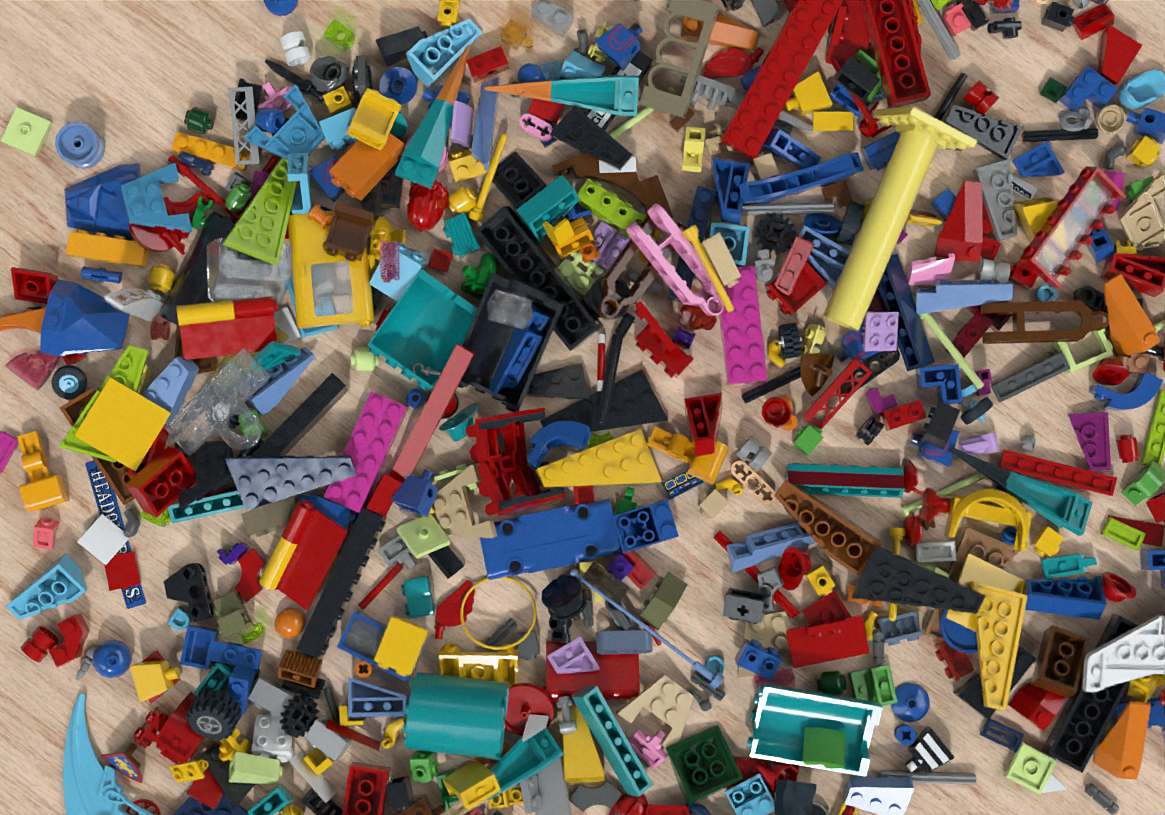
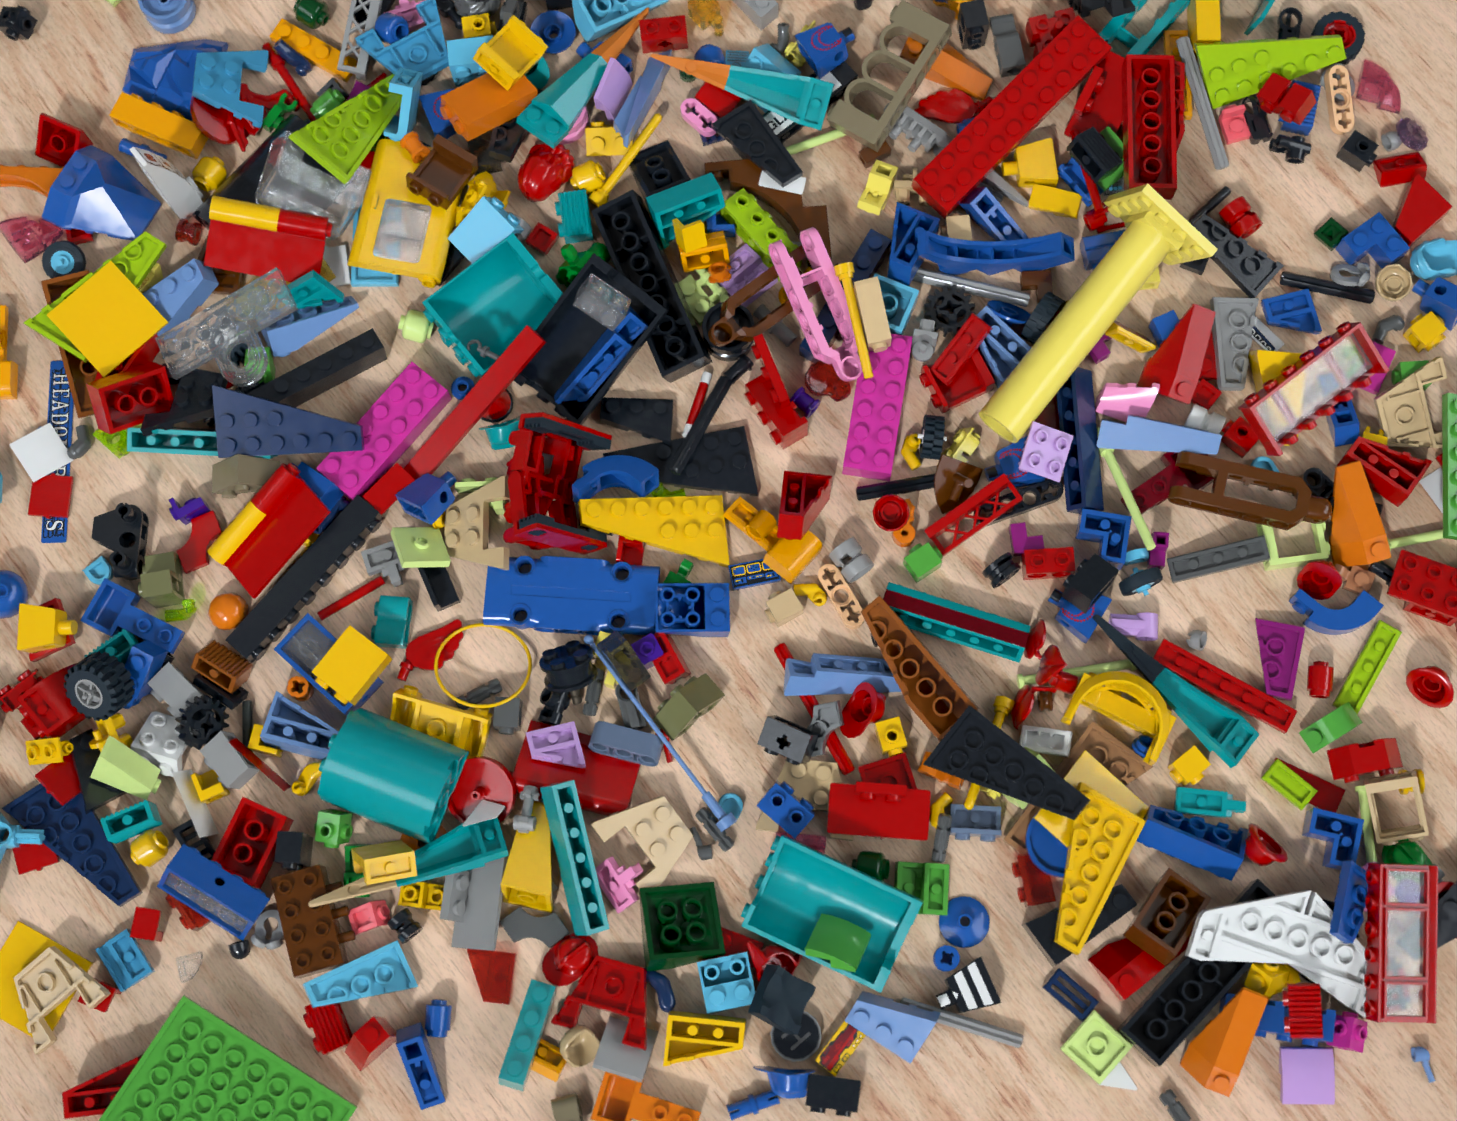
camera: 15 degrees right, 10 degrees down
(389, 261) = (478, 213): clear pink hinge -> none

